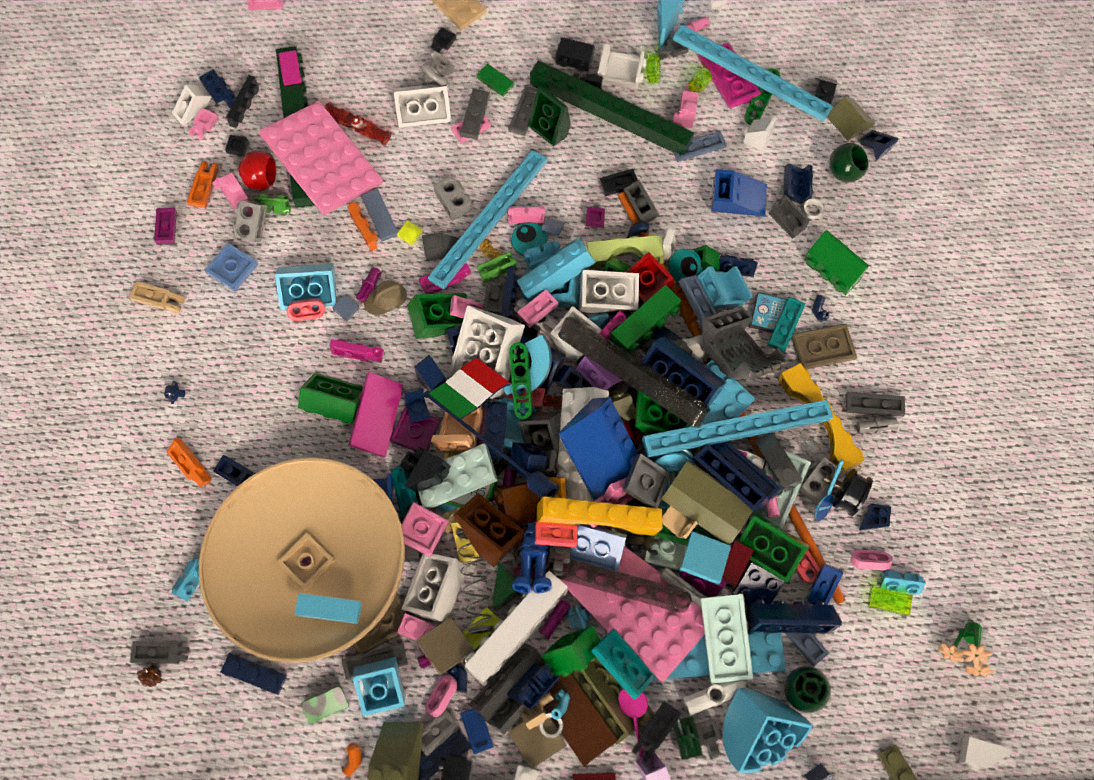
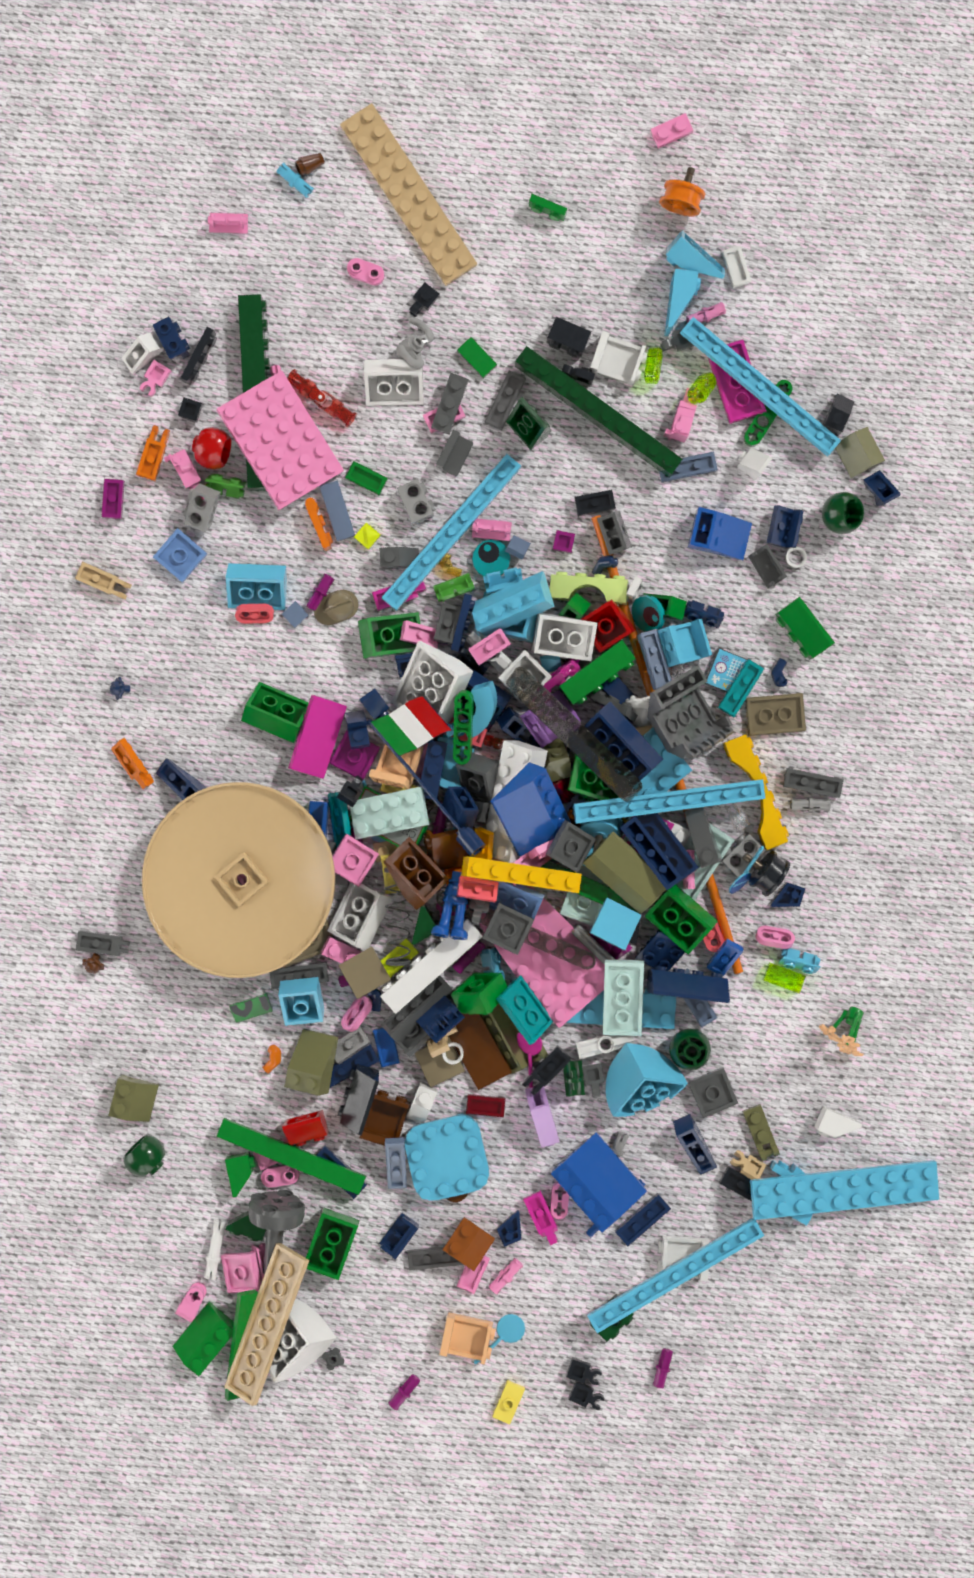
camera: 10 degrees right, 20 degrees up
(186, 586) = (126, 885): medium azure hinge -> none
(253, 674) = (178, 968): dark blue plate -> none
(290, 68) = (252, 324): dark pink tile -> none
(328, 608) = (260, 933): medium azure tile -> none
(356, 351) = (305, 665): dark pink hinge -> none
(388, 25) = (365, 271): none -> bright pink plate
(404, 185) = (366, 478): none -> green tile
(427, 472) = (364, 808): black slope -> none
(483, 156) = (454, 453): none -> dark grey panel
(561, 708) = (464, 1039): medium azure arm -> none
(593, 574) = (508, 928): none -> dark grey plate
(636, 543) = (555, 896): black plate -> none
(677, 523) = (595, 887): tan bracket -> none
(736, 563) = (644, 930): dark red tile -> none
(841, 736) = (713, 1092): none -> dark grey plate

